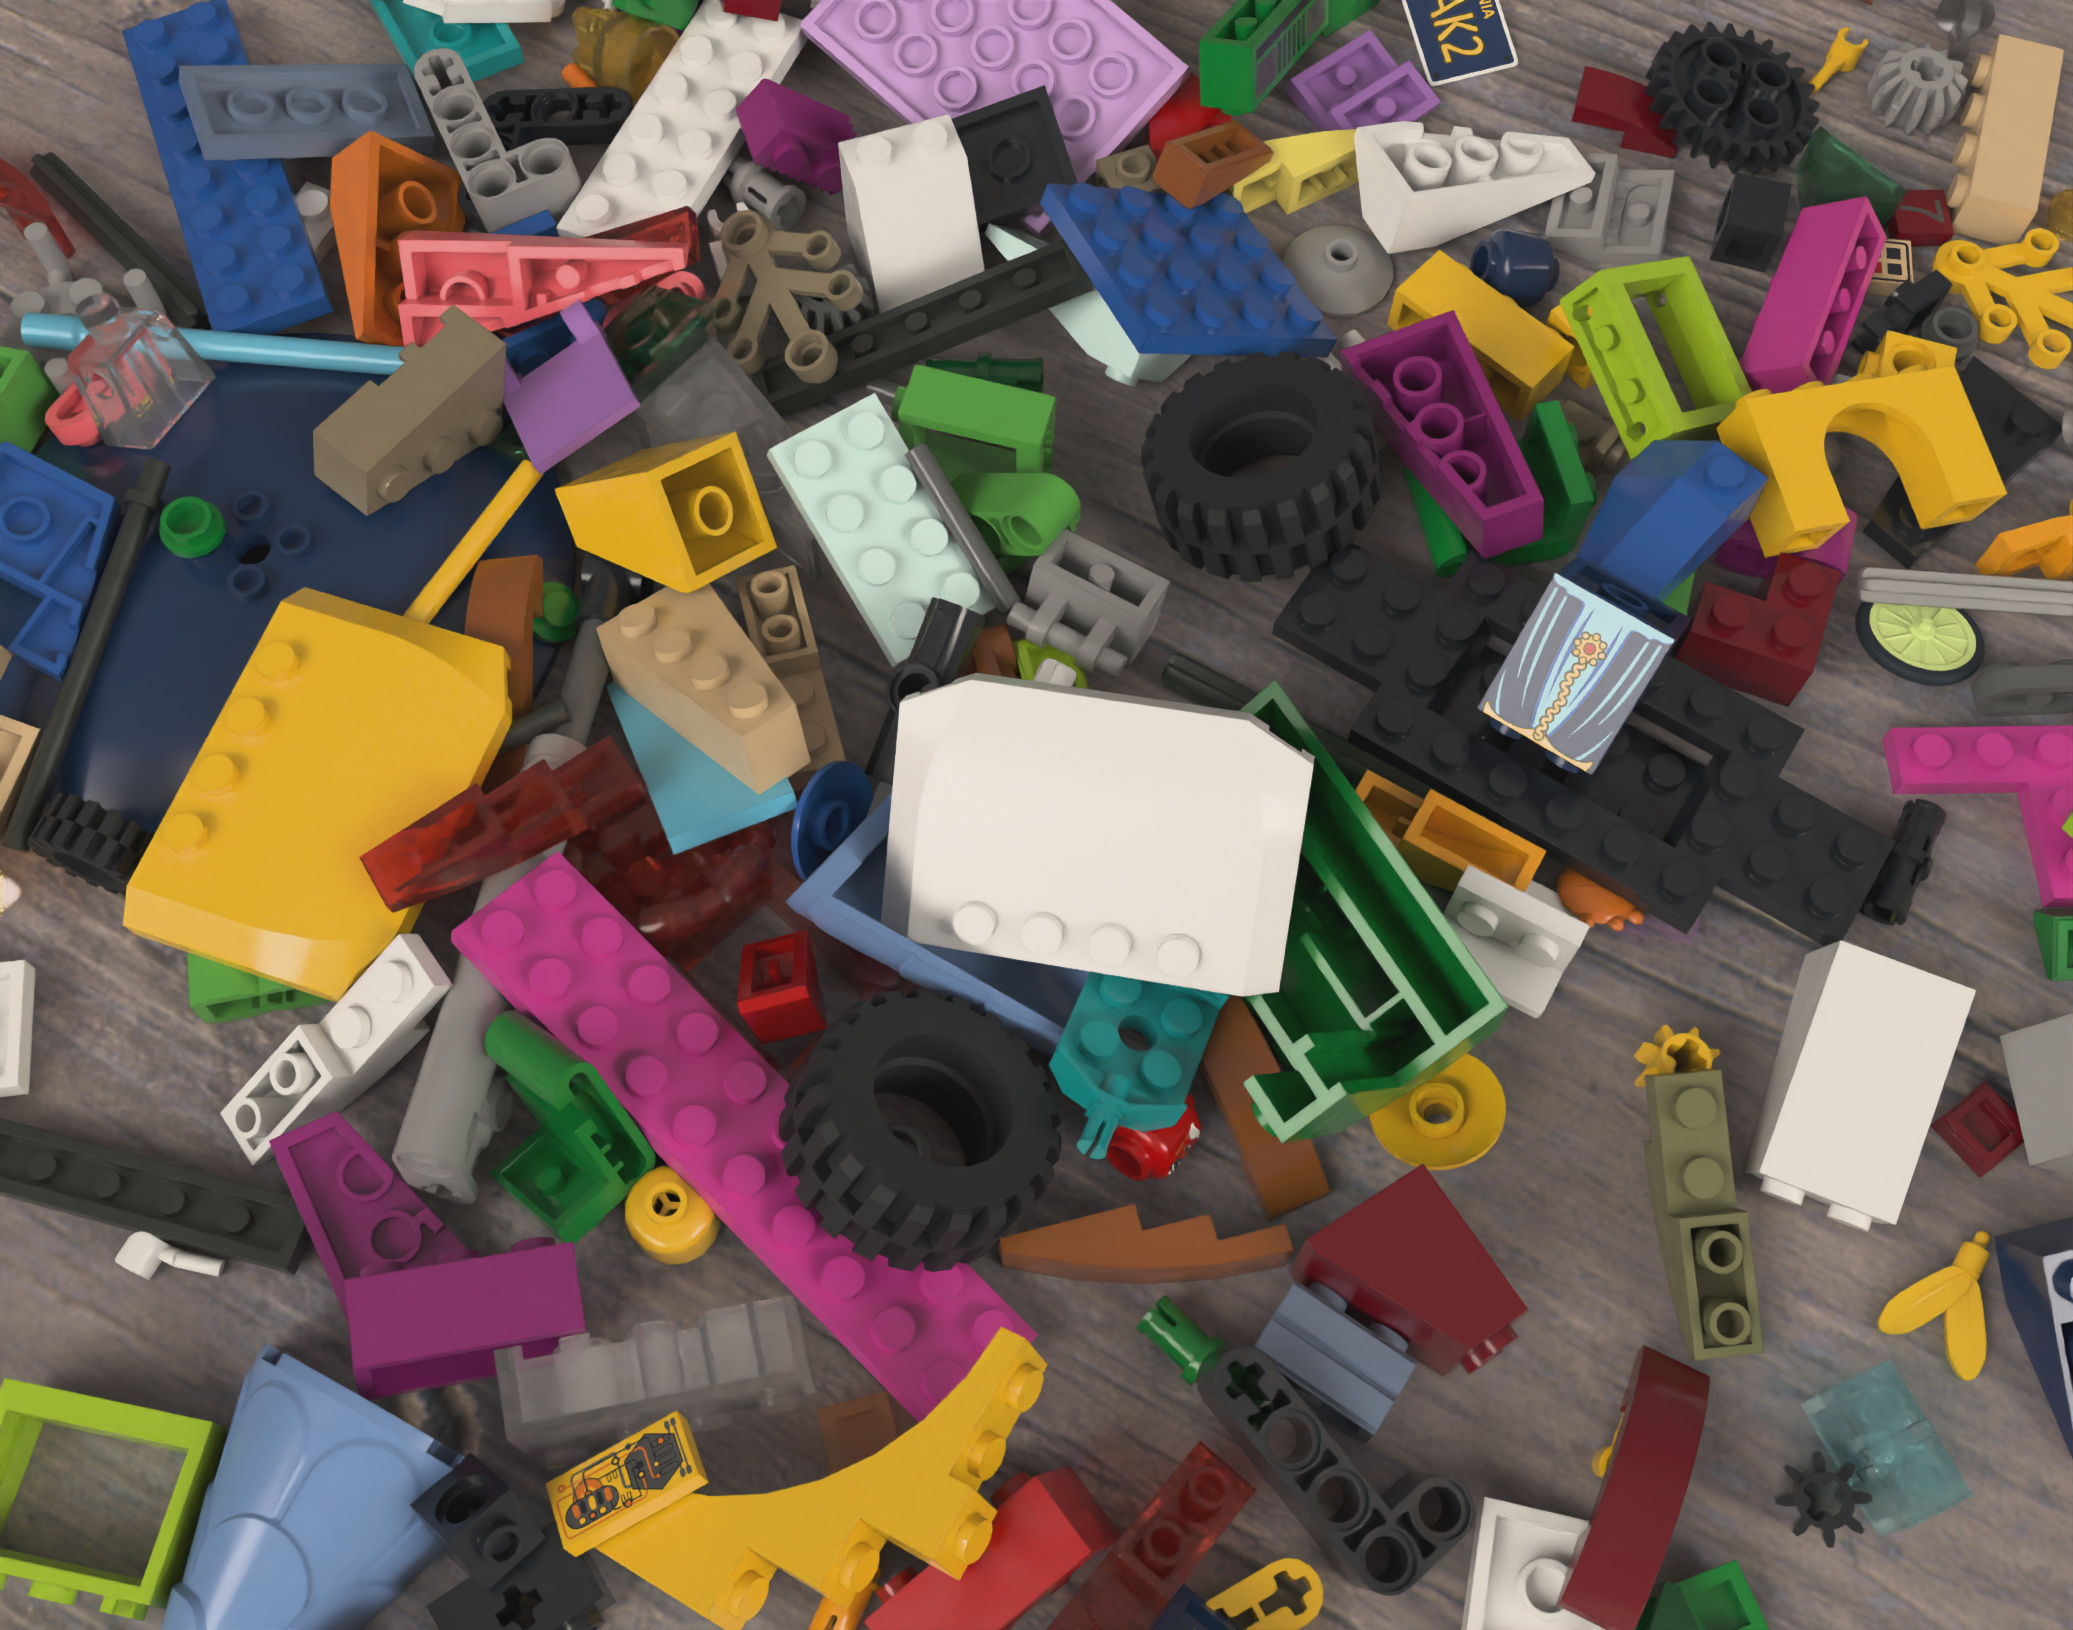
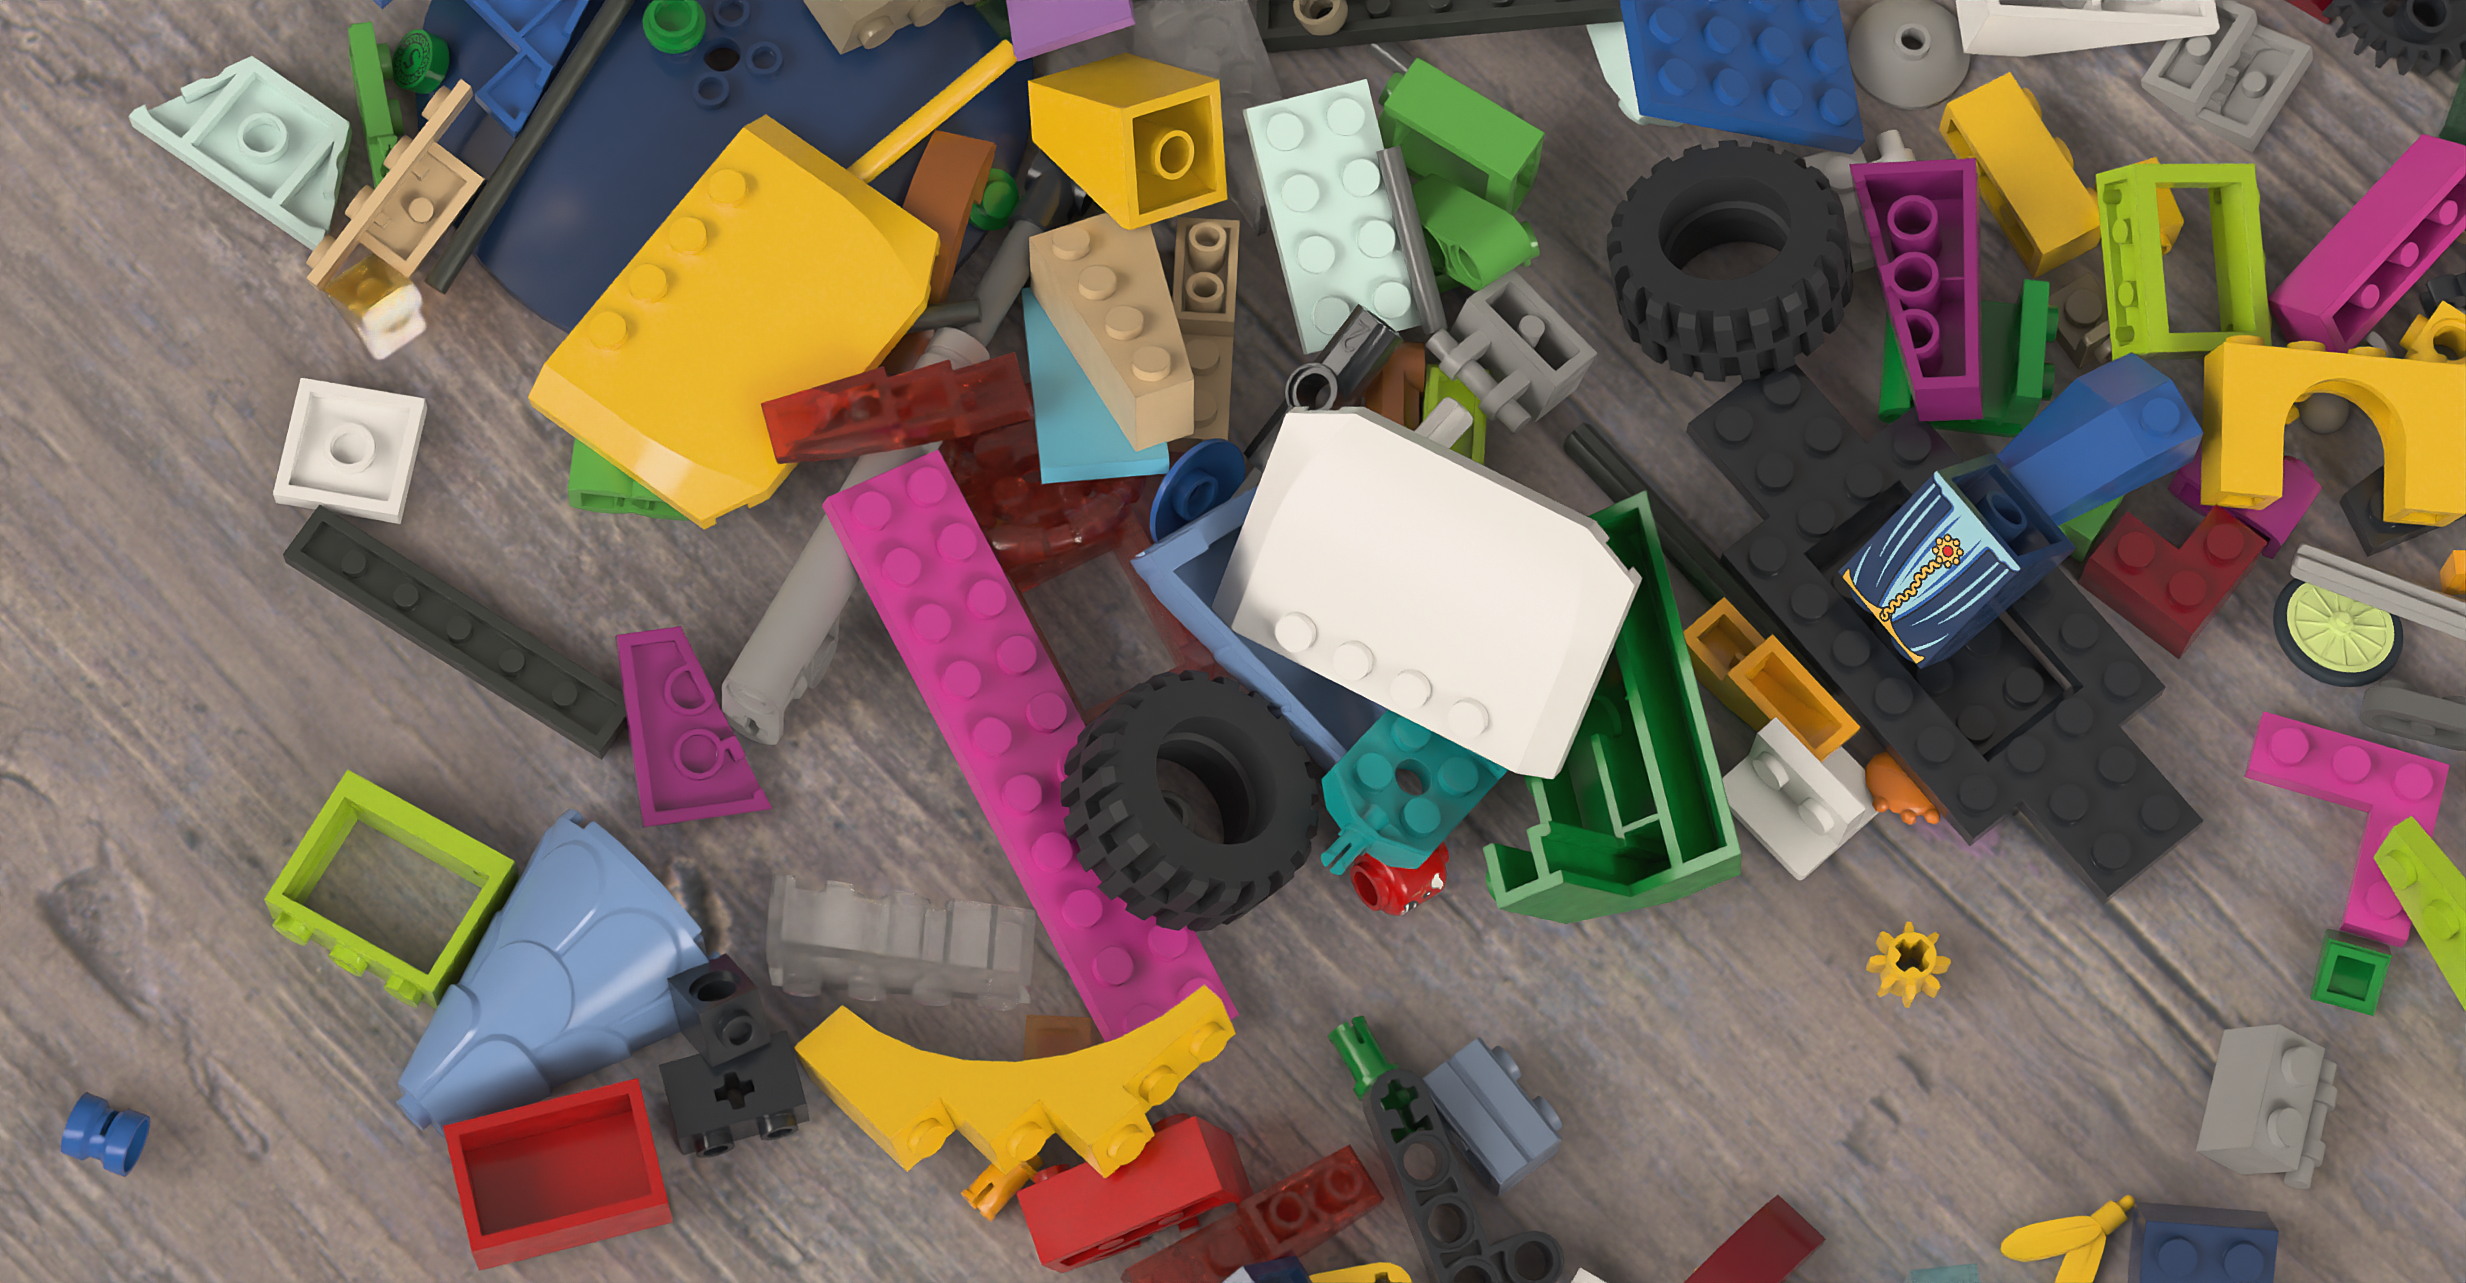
camera: 15 degrees right, 5 degrees up
(90, 842) = (514, 310): black tyre -> none
(145, 1252) = (478, 698): white hand -> none
(341, 1057) = (691, 575): white slope -> none
(447, 1318) = (734, 836): magenta piece -> none
(586, 1142) = (889, 722): green piece -> none
(626, 1483) = (851, 1018): tile -> none
(666, 1236) = (936, 825): yellow head -> none
(780, 988) = (1104, 636): red slope -> none
(1012, 372) = (1495, 69): dark green pin -> none
(1116, 1250) = (1330, 963): dark orange slope -> none
(1279, 1173) = (1507, 942): dark orange slope -> none
(1418, 1271) = (1586, 1060): dark red slope -> none
(1462, 1092) = (1697, 921): yellow dish -> none
(1517, 265) = (2089, 110): dark blue head -> none
(1697, 1215) = (1872, 1095): olive slope -> none
(1750, 222) = (2366, 129): black brick -> none
(1856, 1083) = (2060, 1028): white slope -> none
(1906, 863) = (2217, 844): black pin -> none
(1980, 1129) = (2172, 1108): dark red tile -> none

